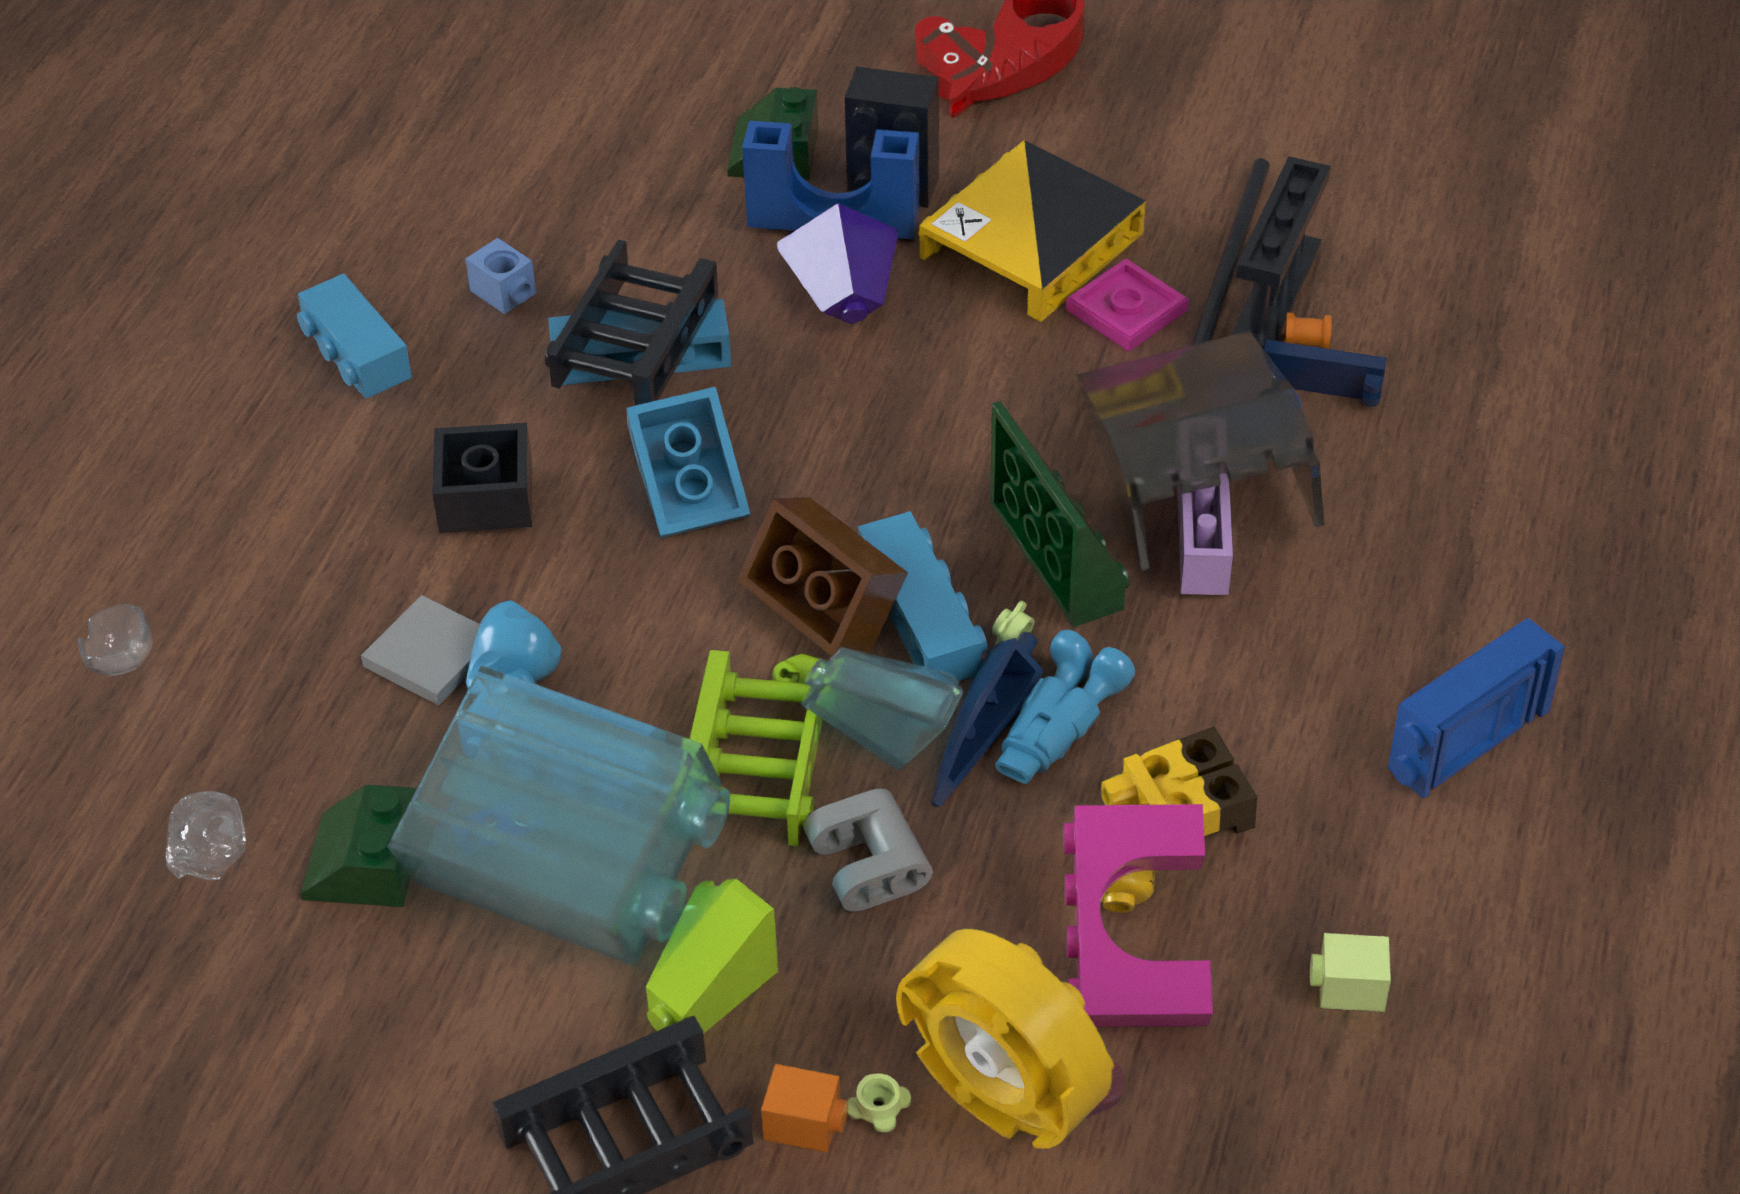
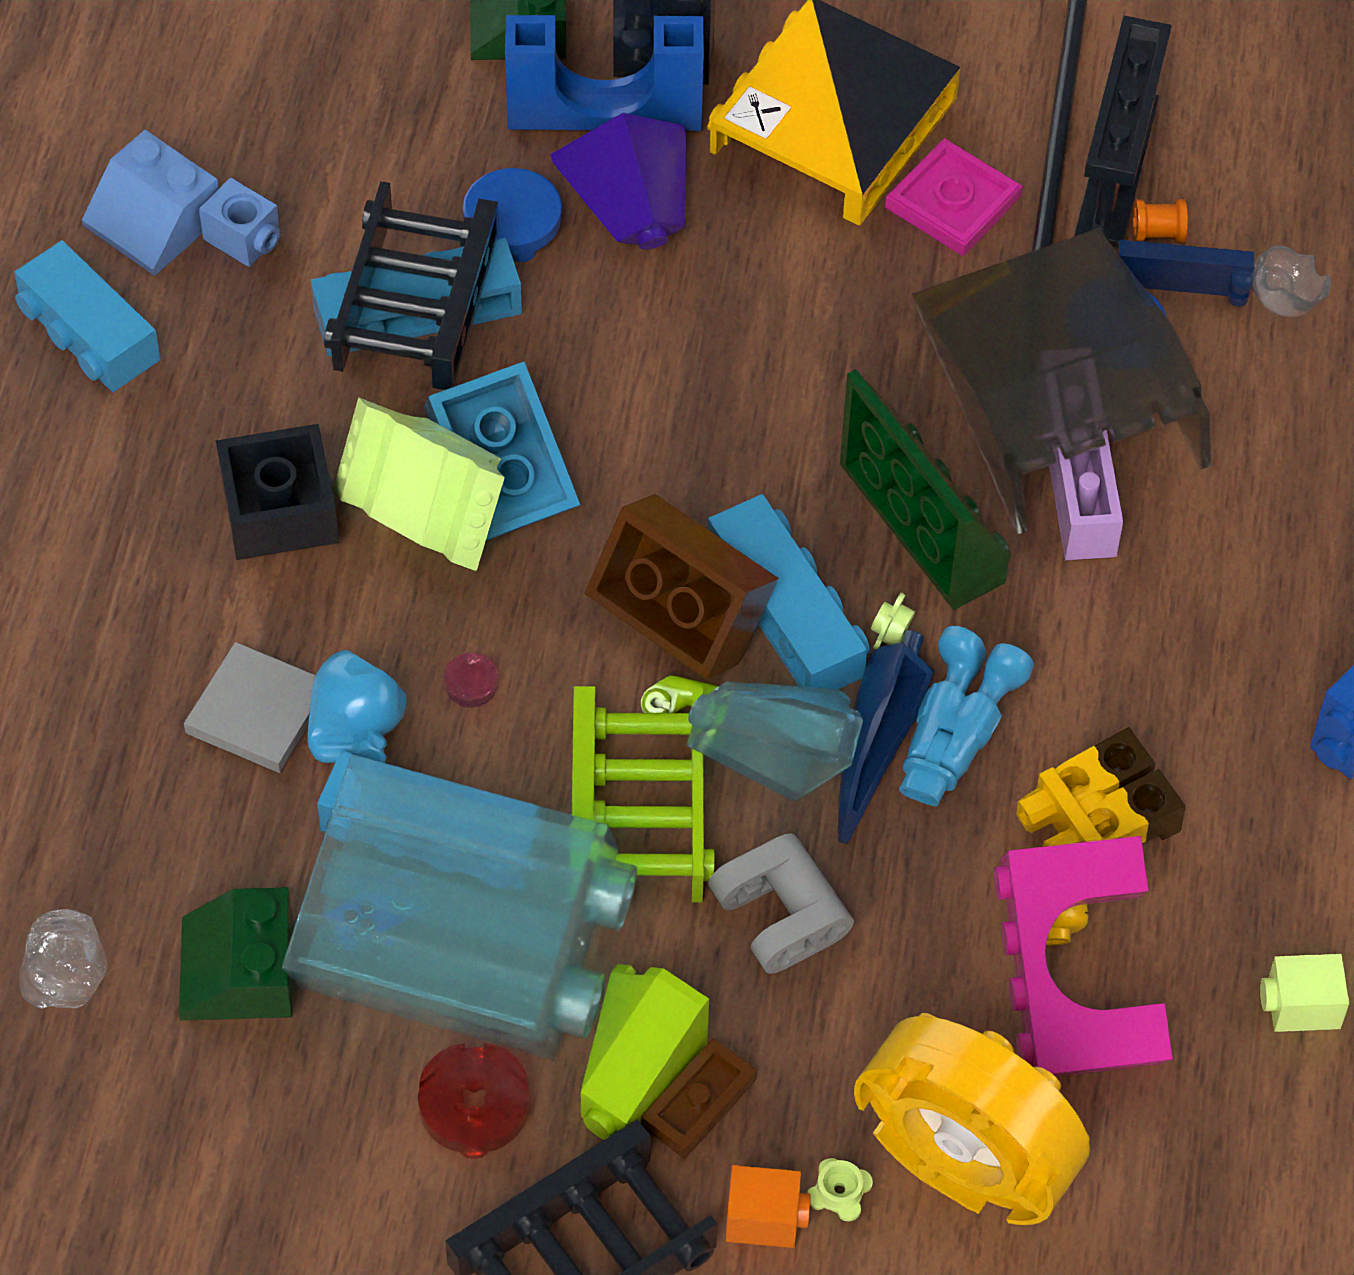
camera: 10 degrees left, 10 degrees up
(427, 255) = (149, 202): none -> medium blue slope
(557, 1014) = (474, 1129): none -> clear red plate
(604, 473) = (420, 481): none -> yellowish green slope
(624, 644) = (471, 680): none -> clear pink tile
(746, 285) = (526, 205): none -> blue tile
(759, 1008) = (698, 1098): none -> reddish brown plate
(1416, 388) = (1288, 282): none -> clear hair

